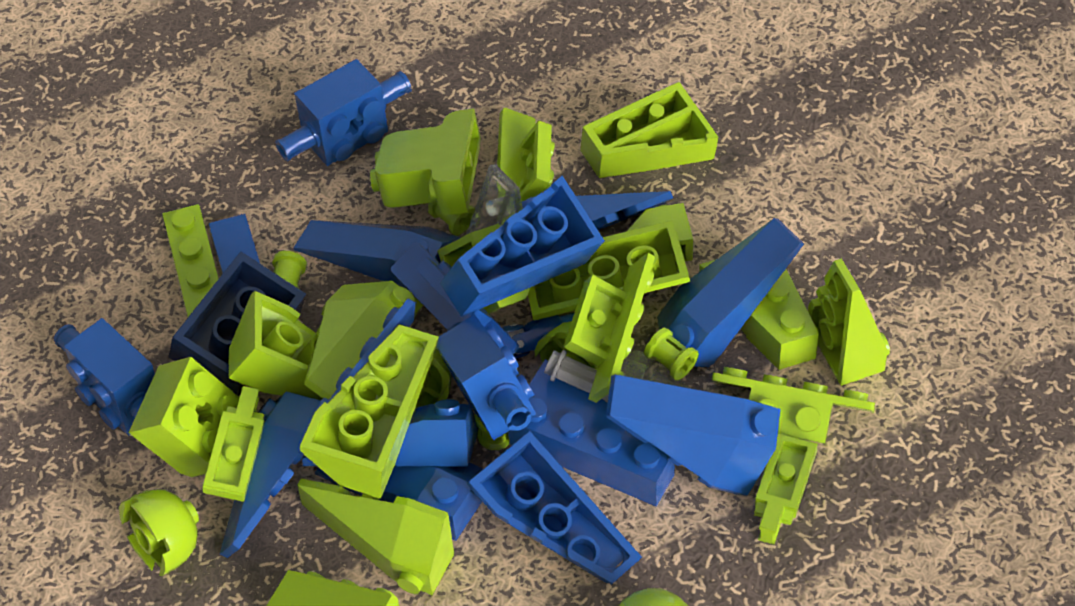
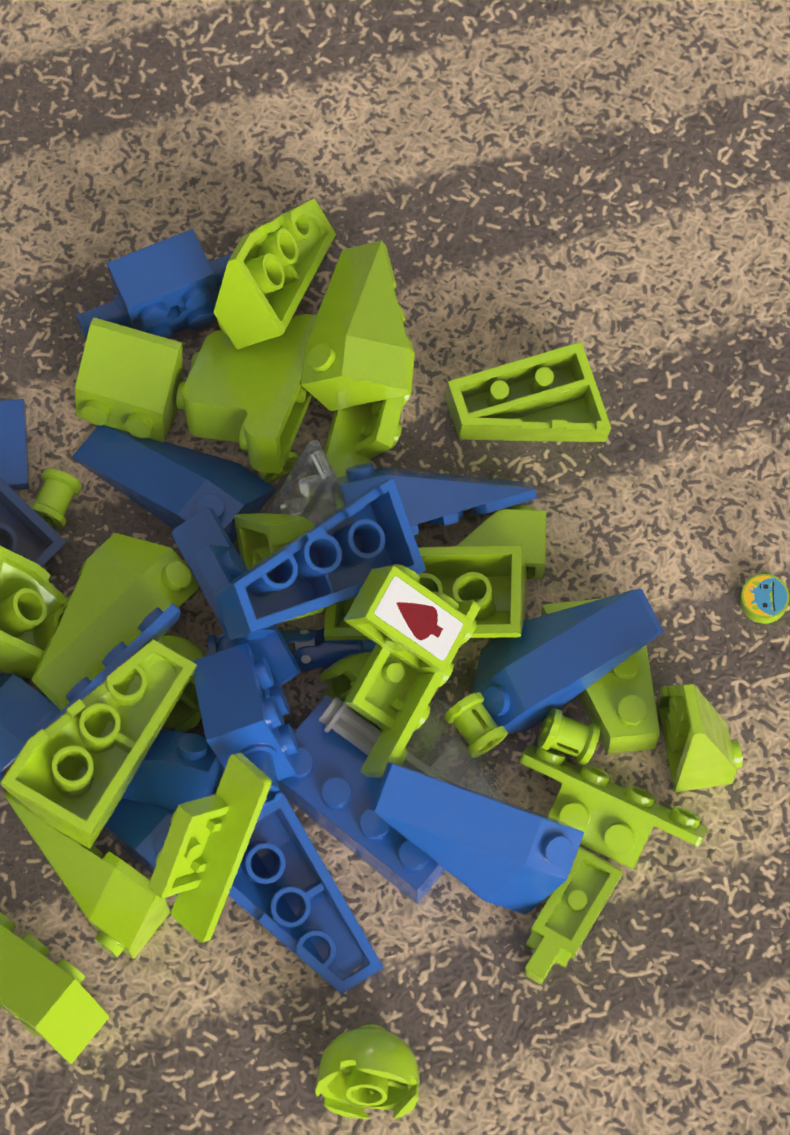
camera: 10 degrees right, 15 degrees up
(329, 177) = (129, 380): none -> lime slope
(423, 83) = (272, 274): none -> lime wedge
(480, 470) = (208, 846): none -> lime bracket
(505, 114) = (359, 335): none -> lime wedge
(601, 269) = (408, 618): none -> brick
(746, 354) = (569, 736): none -> lime bush
(870, 237) = (764, 598): none -> tile

